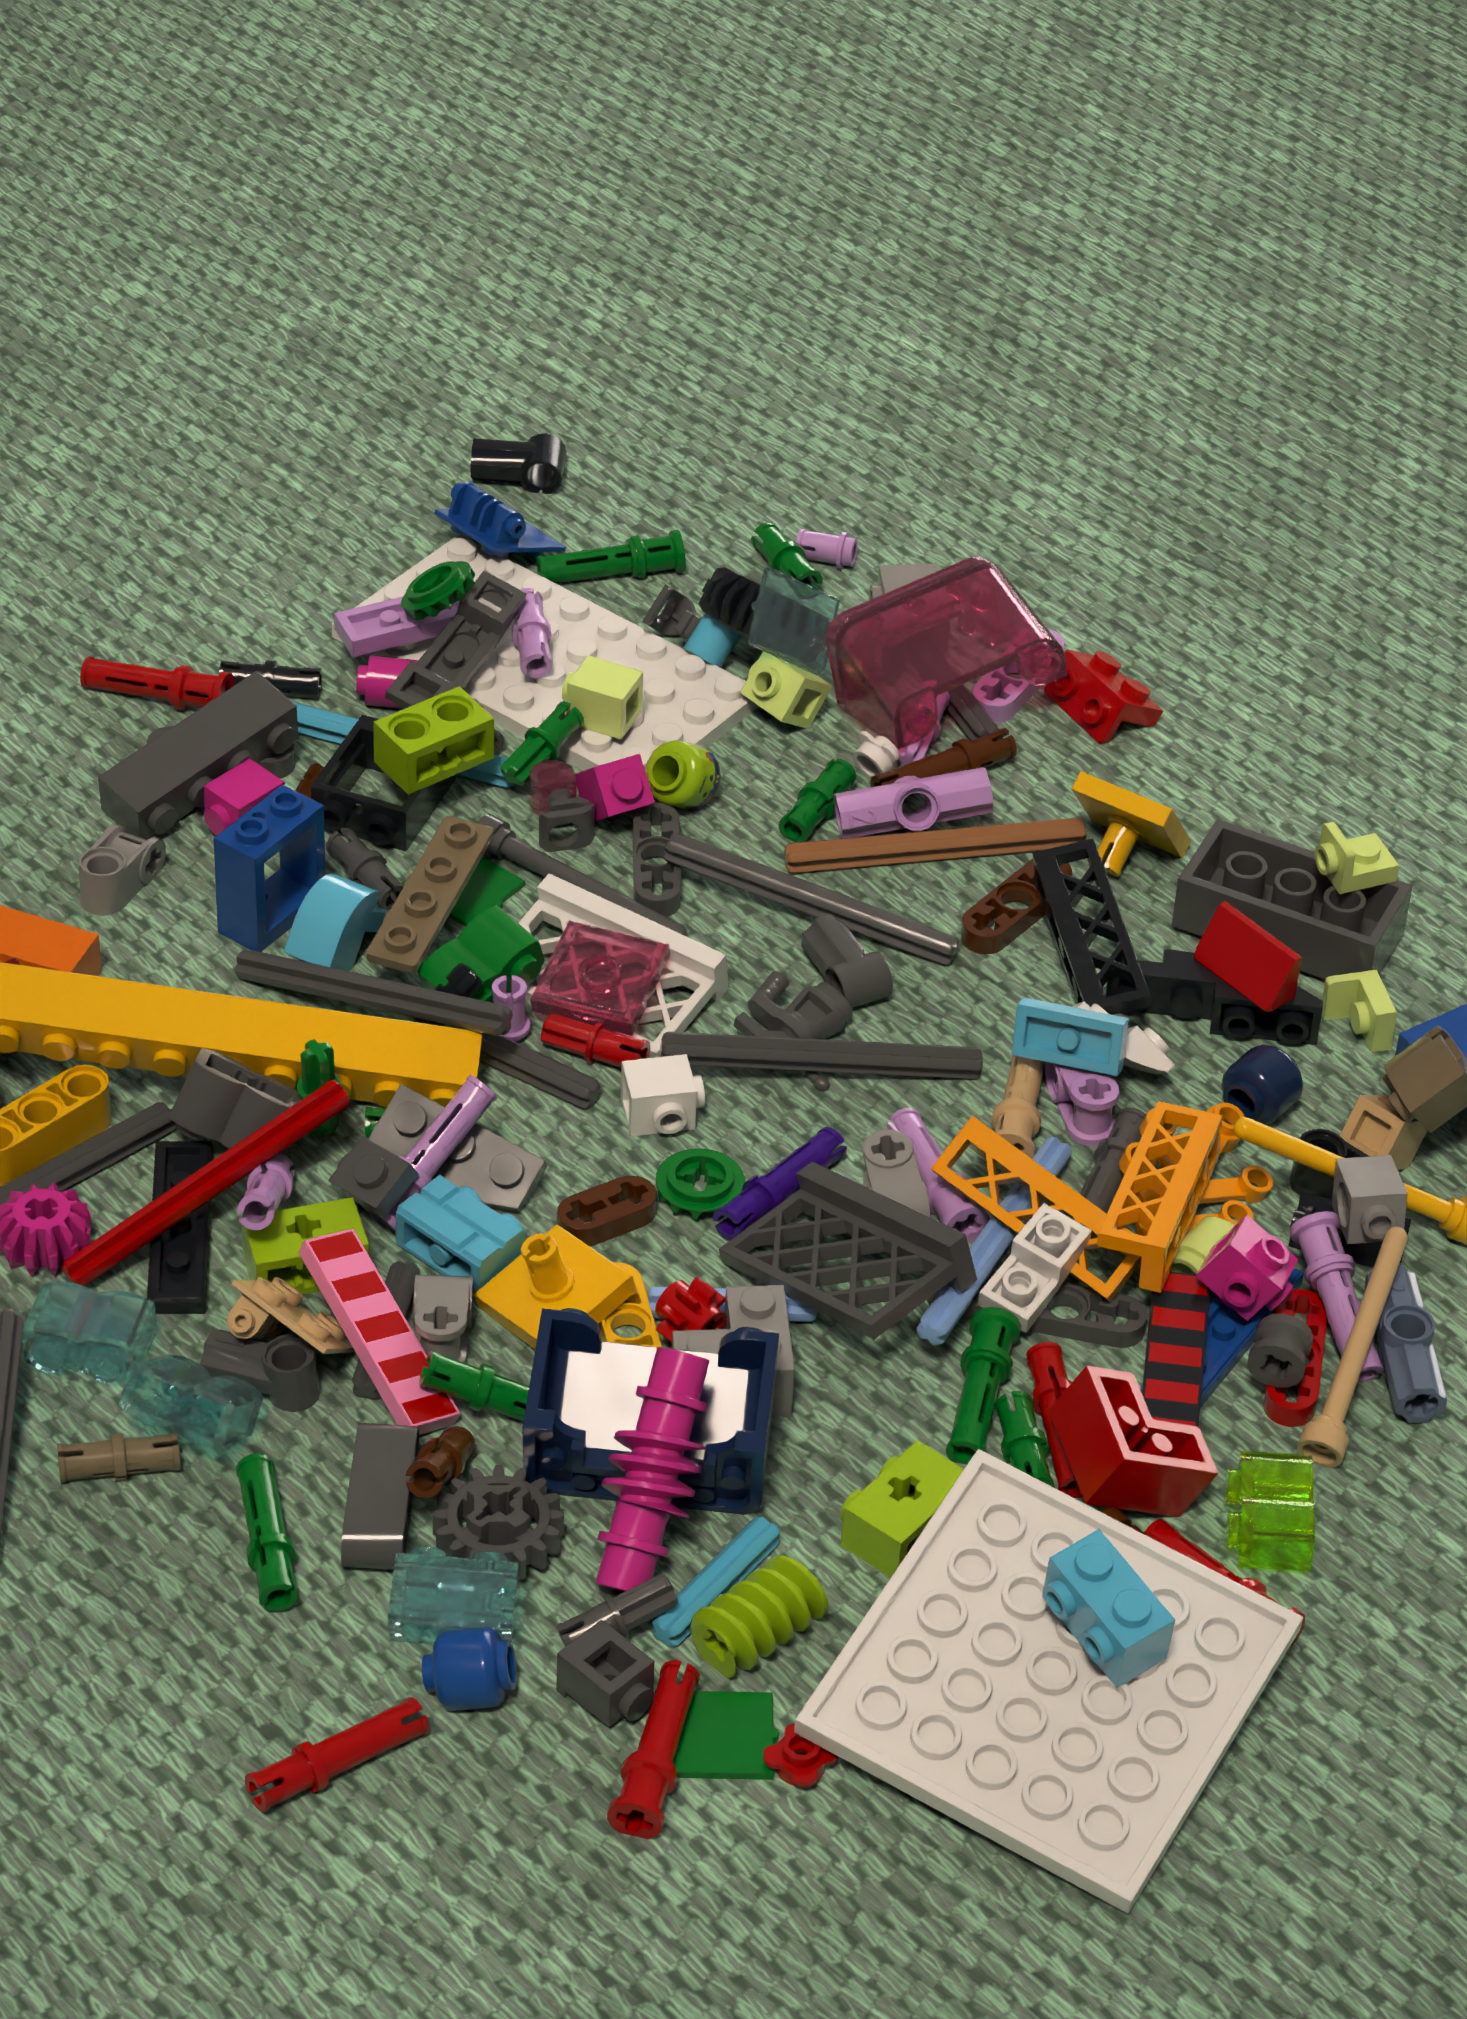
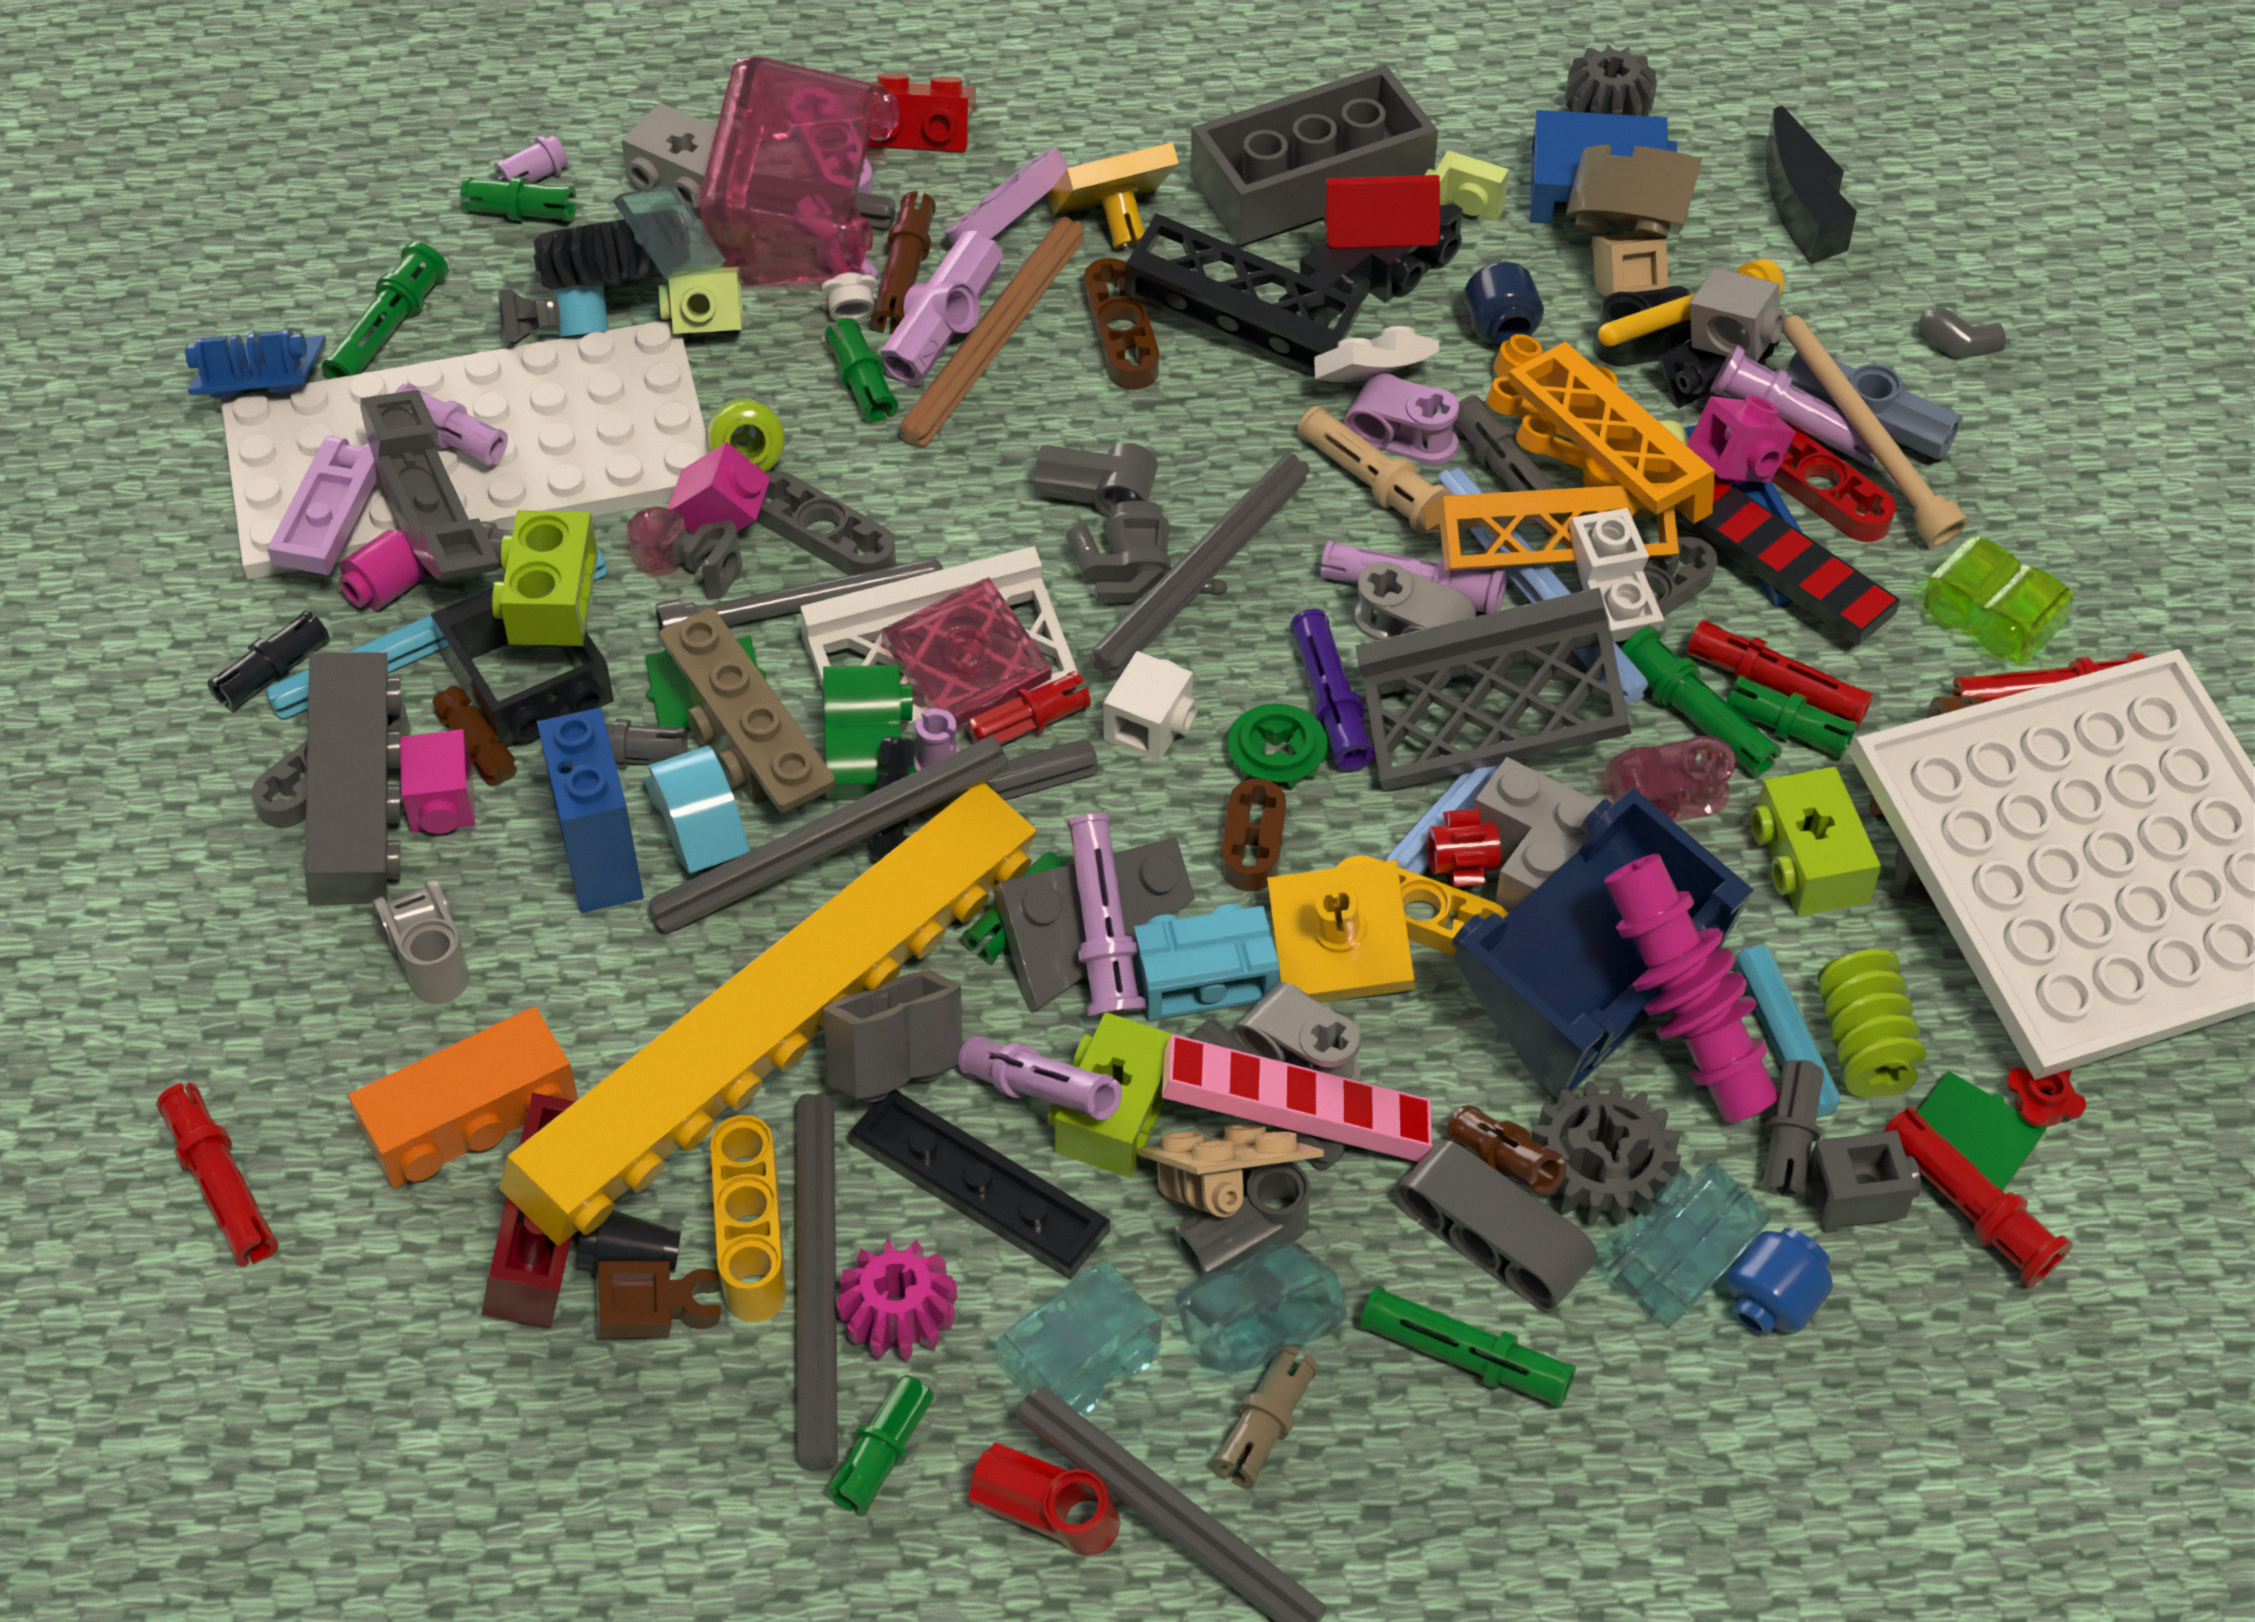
camera: 50 degrees left, 10 degrees up
(180, 687) = (207, 735): red pin -> none
(205, 1184) = (979, 1126): red axle -> none
(314, 1764) = (1804, 1479): red pin -> none
(317, 1070) = (941, 945): green axle -> none
(373, 1177) = (1096, 980): dark grey bracket -> none
(438, 589) = (326, 454): green gear -> none
(475, 1385) = (1424, 1062): green pin -> none
(520, 462) = (182, 285): black piece -> none
(542, 743) = (606, 508): green axle -> none
(605, 695) = (599, 425): yellowish green brick -> none
(810, 898) = (988, 451): dark grey axle -> none
(878, 1404) = (1672, 780): none -> clear pink piece
(1050, 781) = (1011, 197): none -> lavender beam
(1070, 1036) = (1375, 378): medium azure plate -> none
(1108, 1608) = (2114, 764): medium azure brick -> none
(1125, 1454) = (1884, 644): red brick -> none
(1280, 1350) = (1843, 479): dark grey wheel -> none
(1354, 861) = (1337, 77): yellowish green bracket -> none

